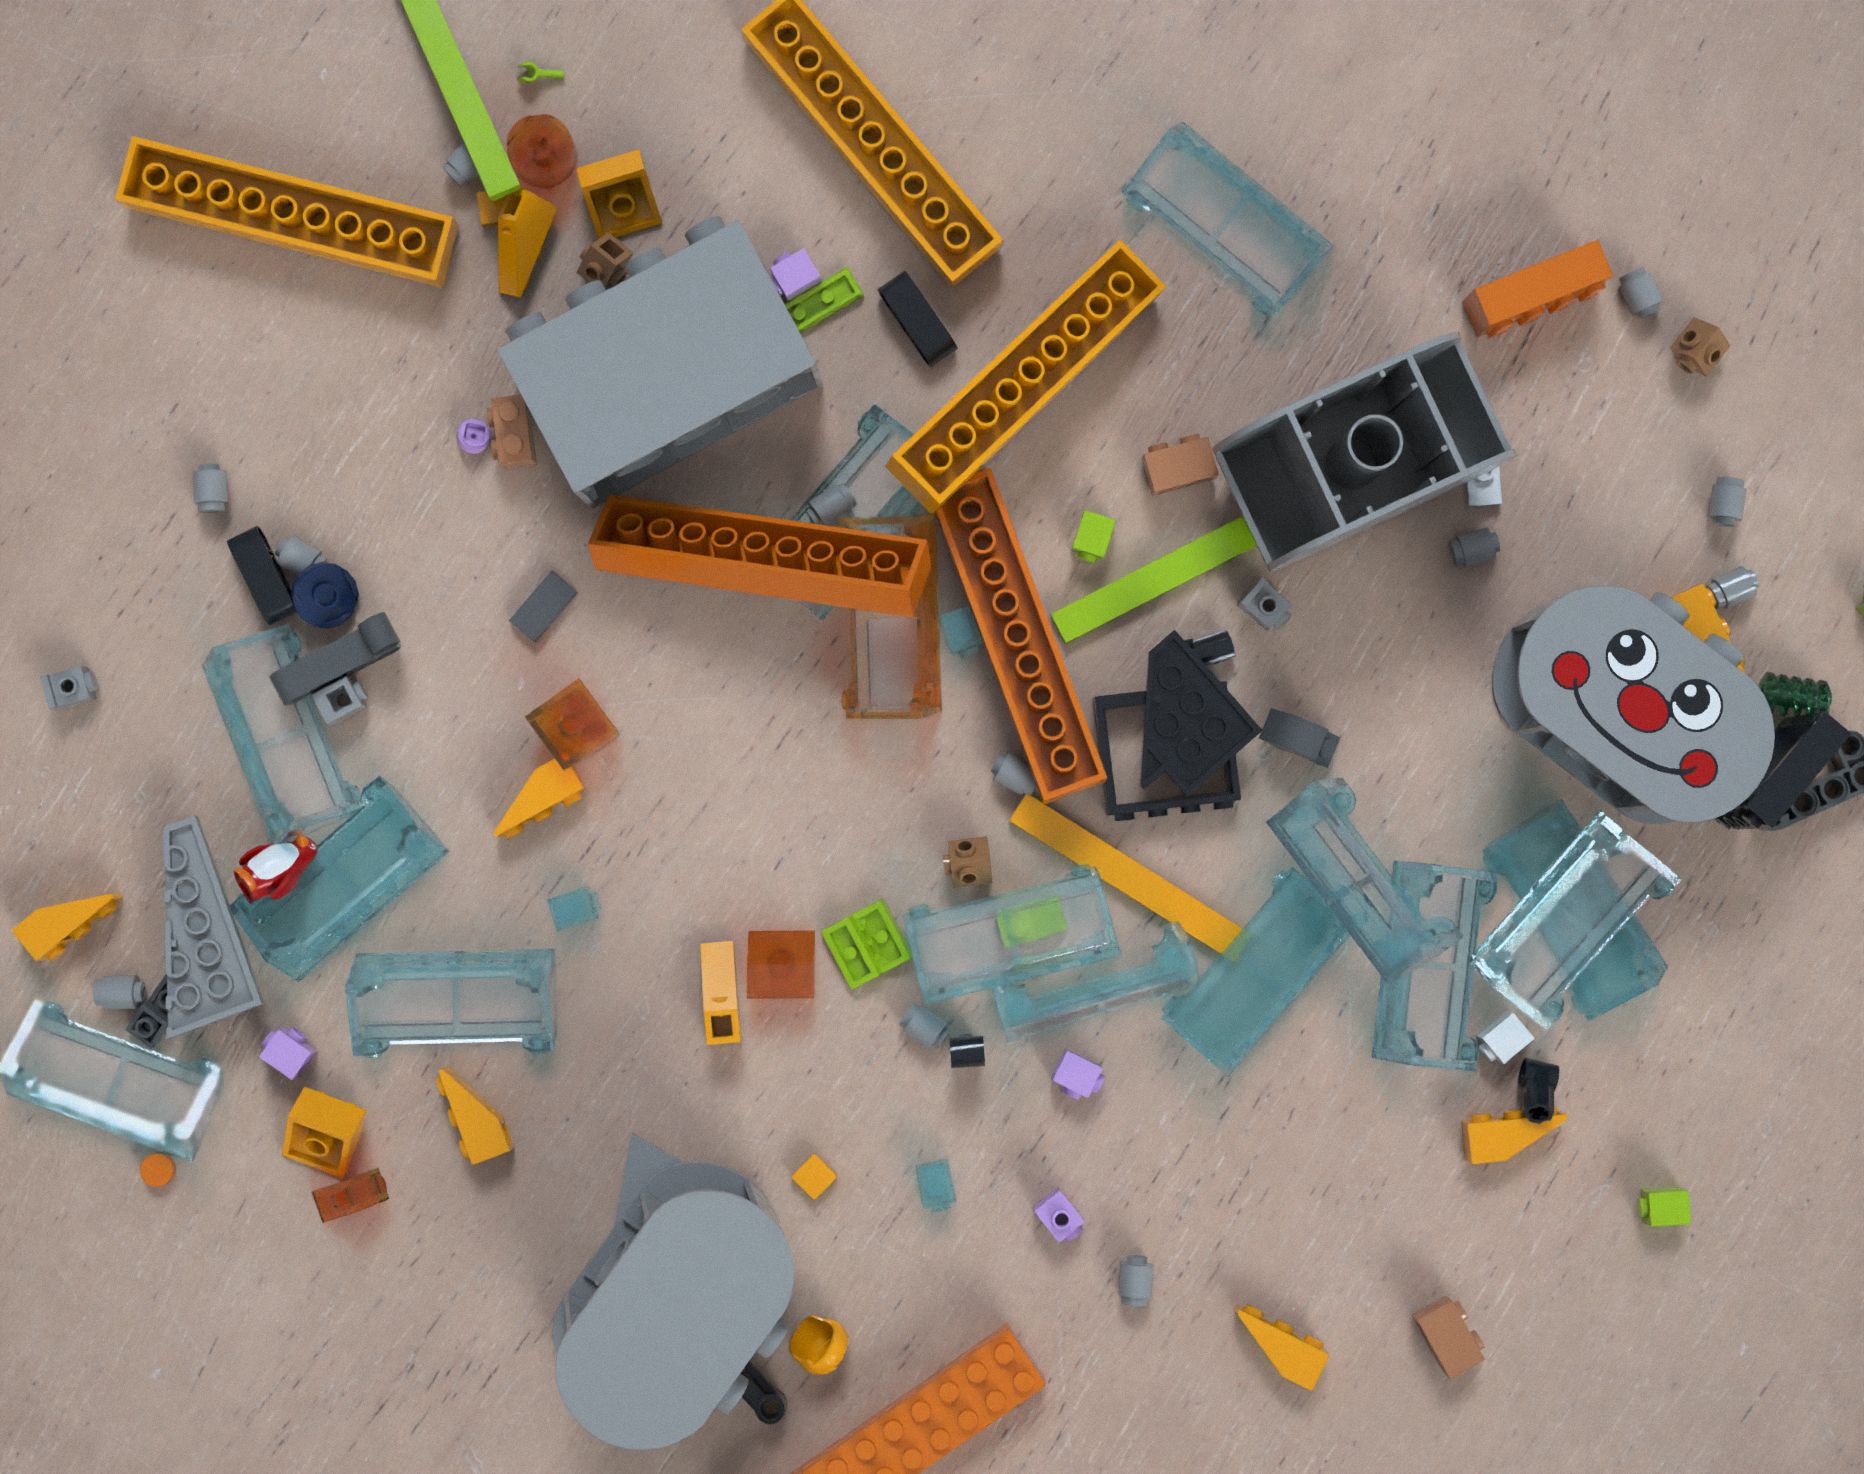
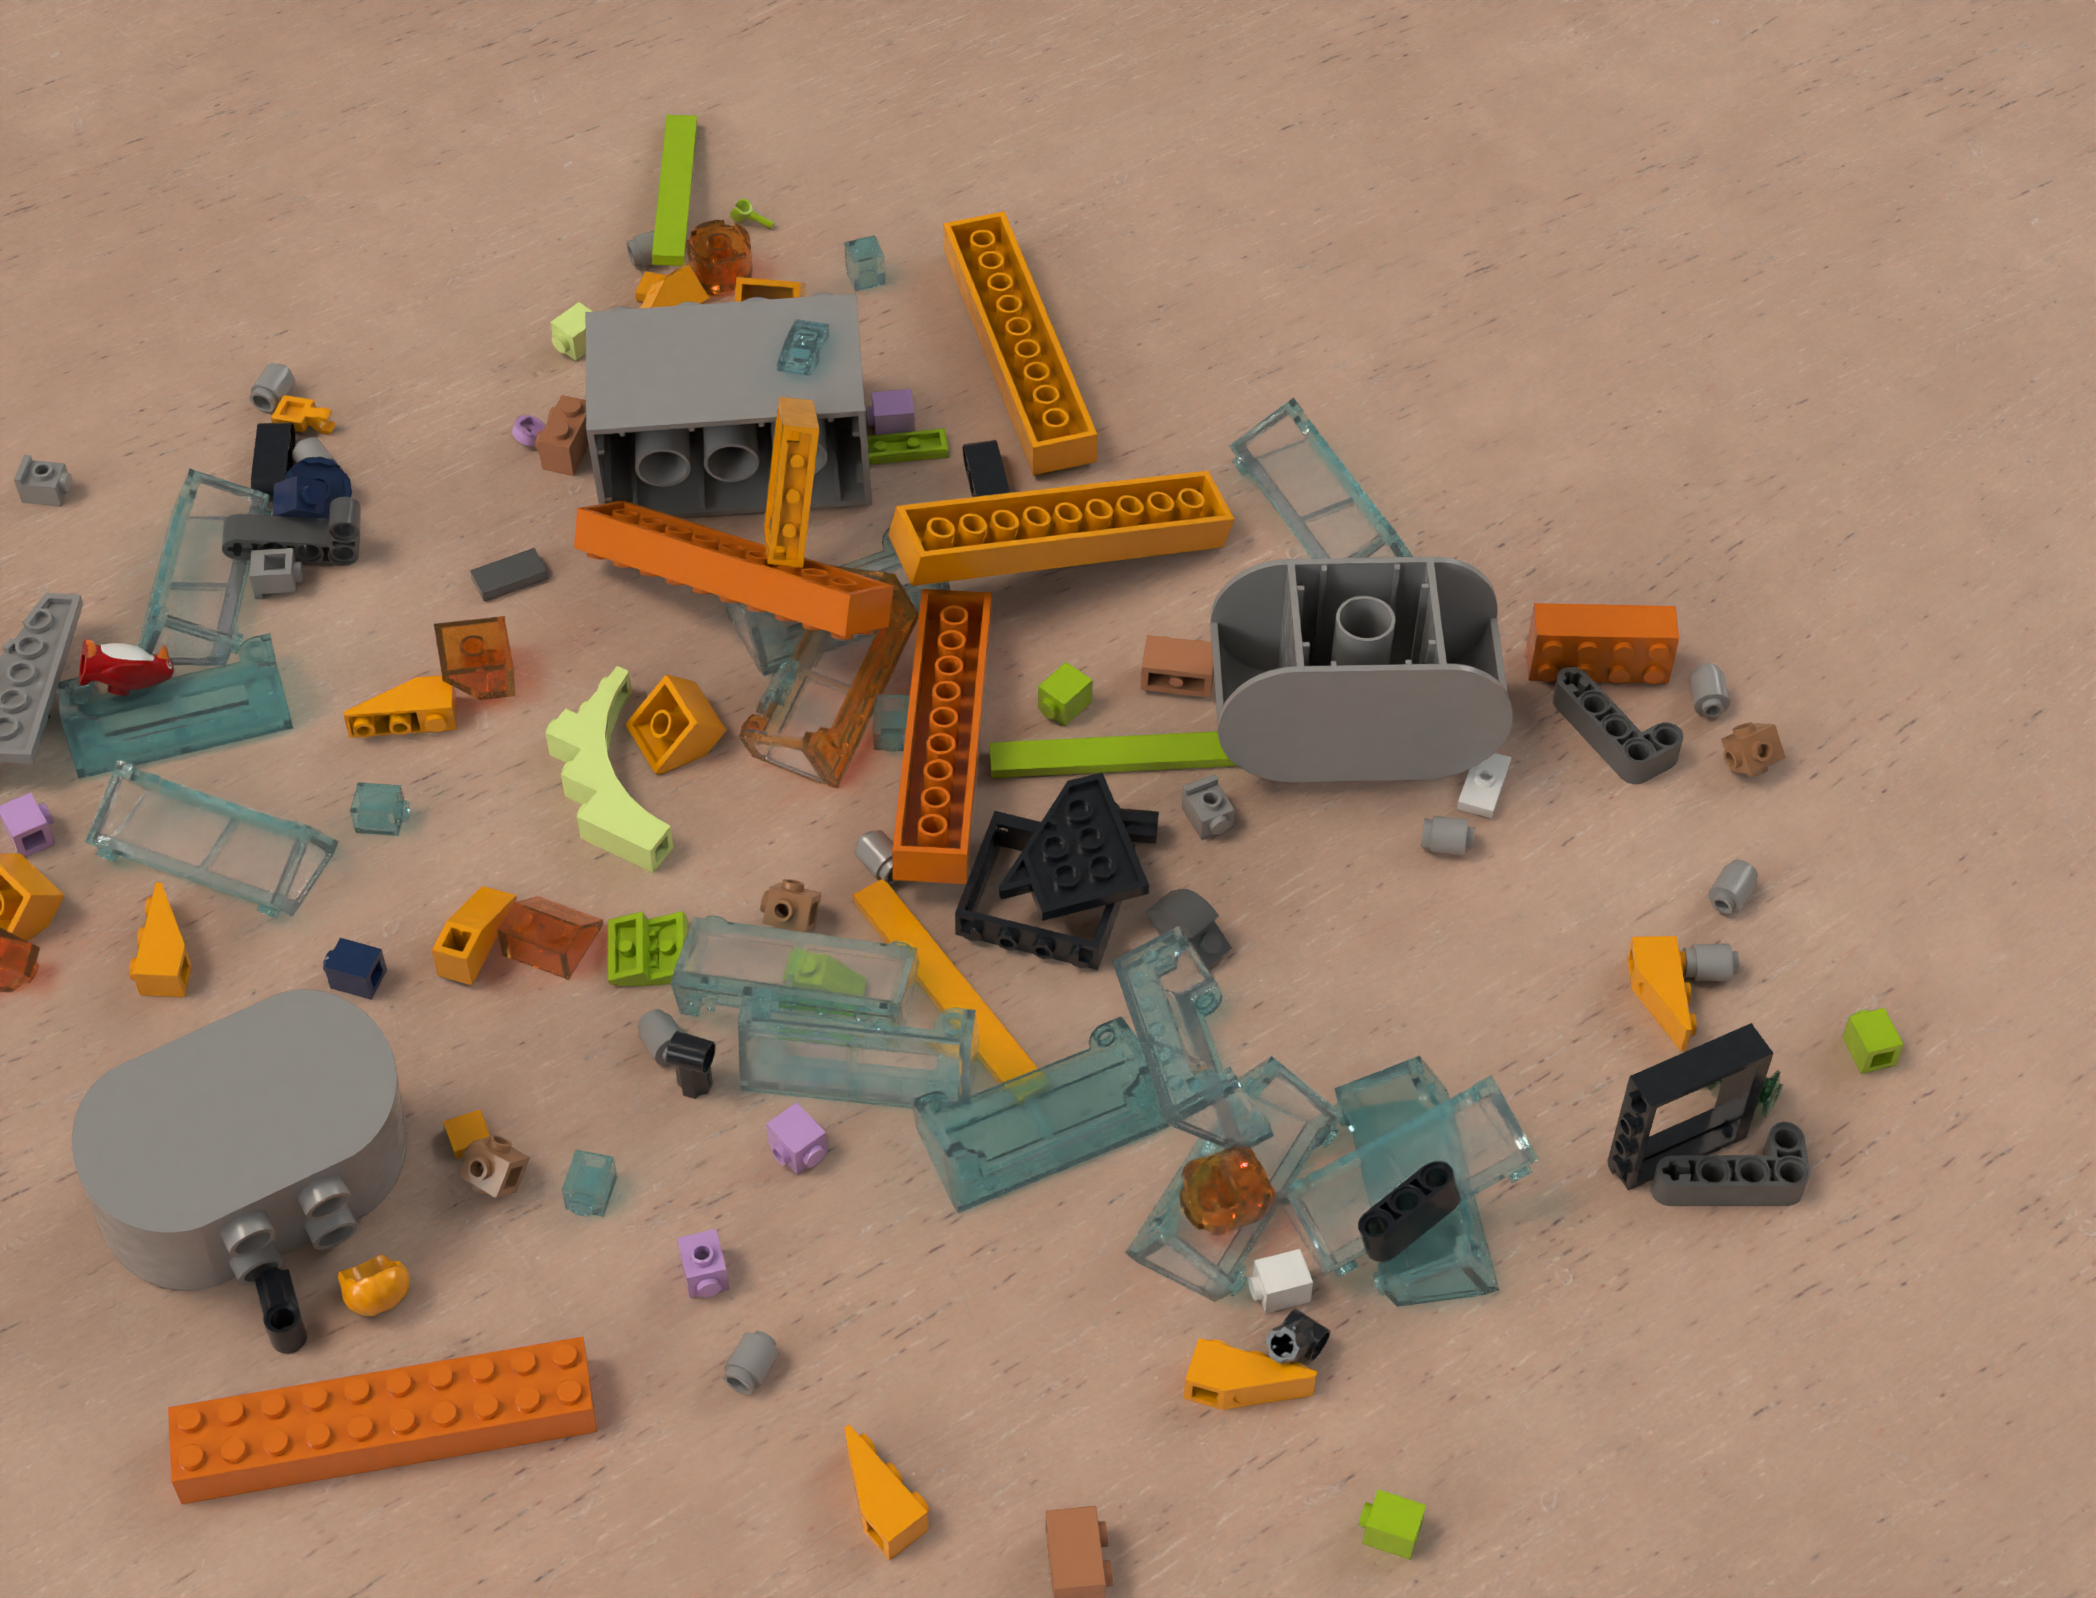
camera: 25 degrees right, 35 degrees down
(252, 509) = (303, 414): none -> light orange plate
(287, 211) = (474, 225): light orange brick -> none
(325, 628) = (299, 498): none -> dark blue brick
(453, 299) = (569, 331): none -> yellowish green brick
(641, 1071) = (355, 968): none -> dark blue brick
(681, 96) = (865, 263): none -> clear light blue brick
(710, 763) = (607, 811): none -> yellowish green arch
(727, 317) = (802, 347): none -> clear light blue slope
(777, 713) = (675, 724): none -> light orange slope
(797, 483) = (791, 481): none -> light orange window
(851, 646) = (779, 685): none -> clear light blue slope
(855, 1205) = (493, 1166): none -> medium nougat brick
(1441, 994) = (1225, 1190): none -> clear orange brick
(1568, 363) = (1626, 749): none -> dark grey beam
(1586, 972) = (1409, 1211): none -> black beam
(1635, 704) = (1548, 984): light grey brick -> none

